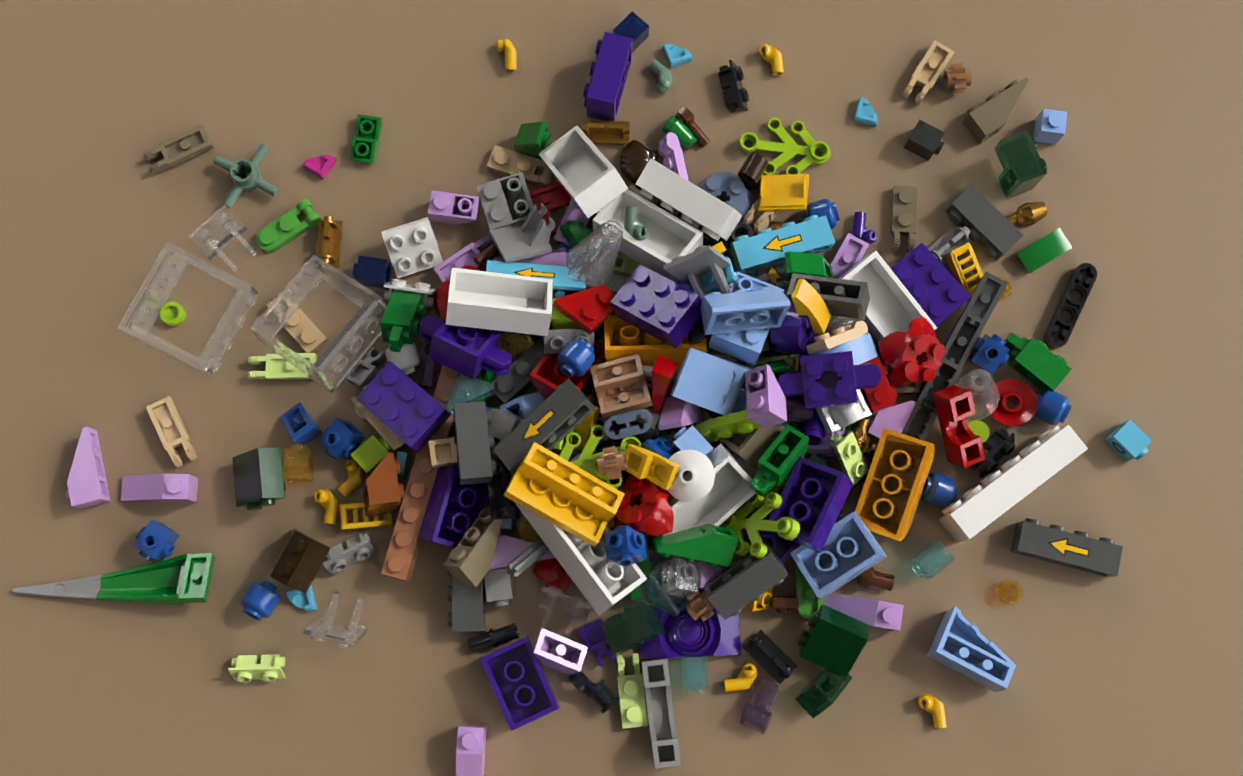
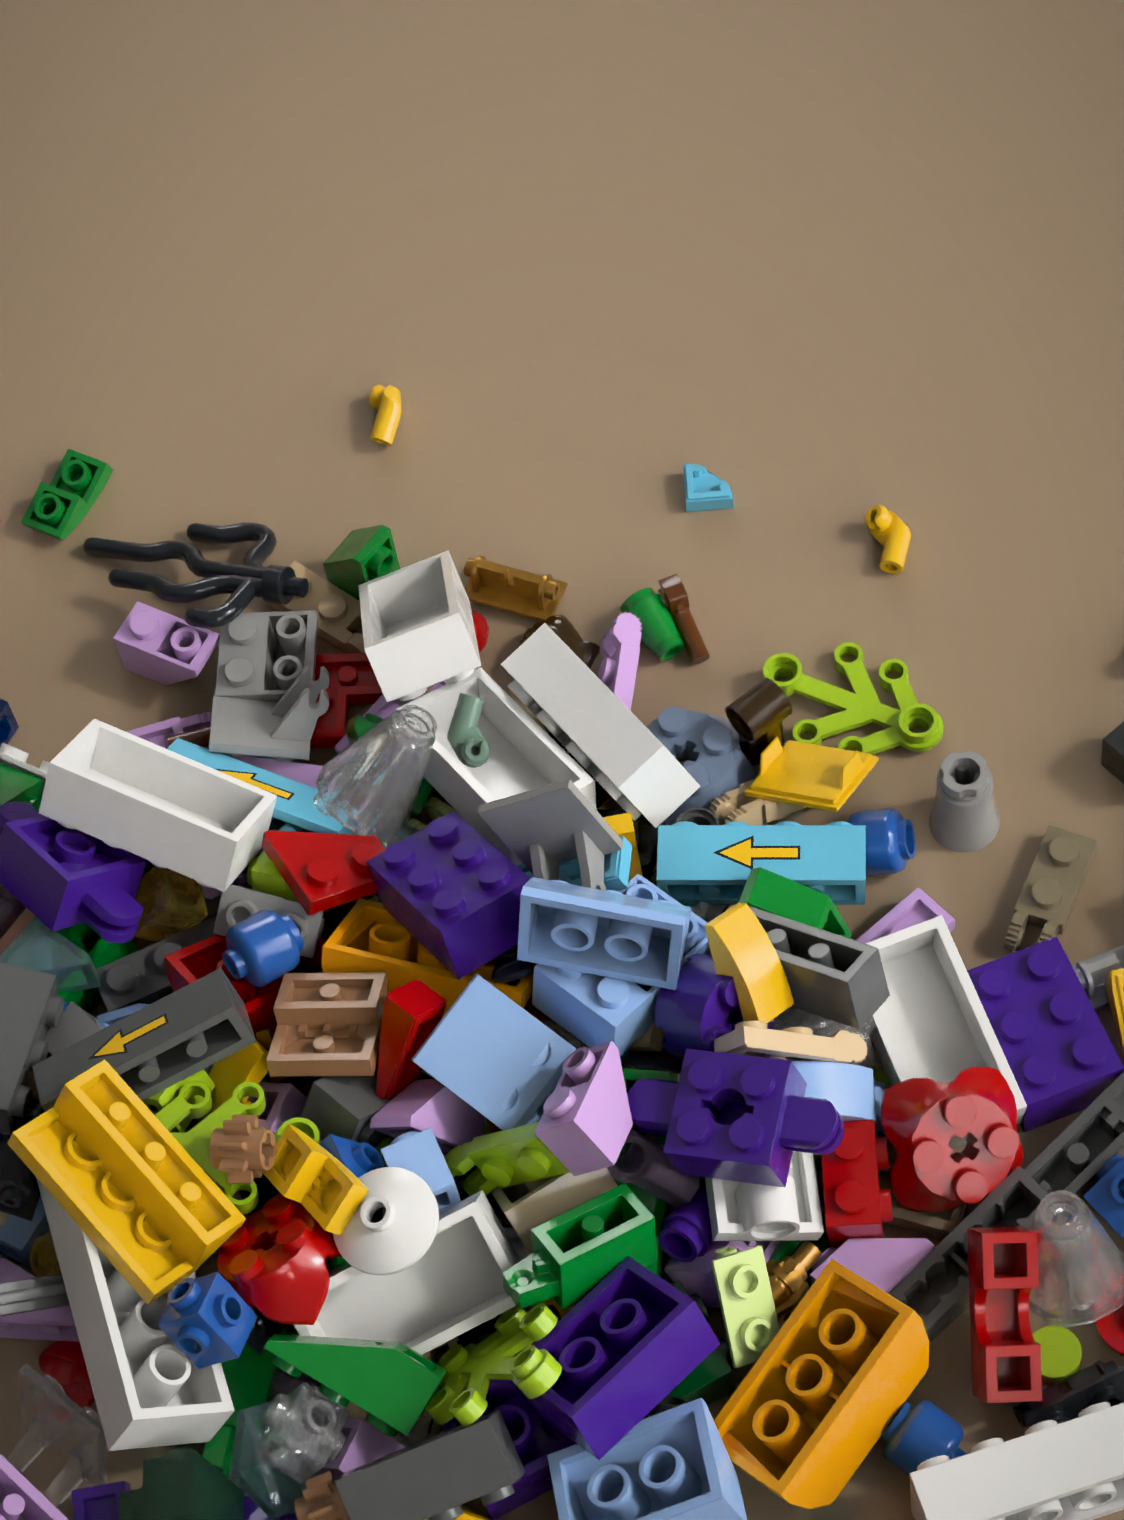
camera: 30 degrees right, 20 degrees down
(412, 247) = (62, 692): white plate -> none
(479, 163) = (243, 582): none -> black plant
(608, 76) = (550, 489): dark purple brick -> none
(627, 417) = (310, 1082): sand blue beam -> none
(633, 28) = (627, 429): clear blue brick -> none
(664, 76) = (664, 519): sand green arm -> none
(732, 78) = (796, 552): black hinge -> none
(855, 187) = (964, 804): none -> light grey plant
(859, 229) = (950, 892): dark purple arm -> none
(865, 113) = (1041, 680): medium azure tile -> none

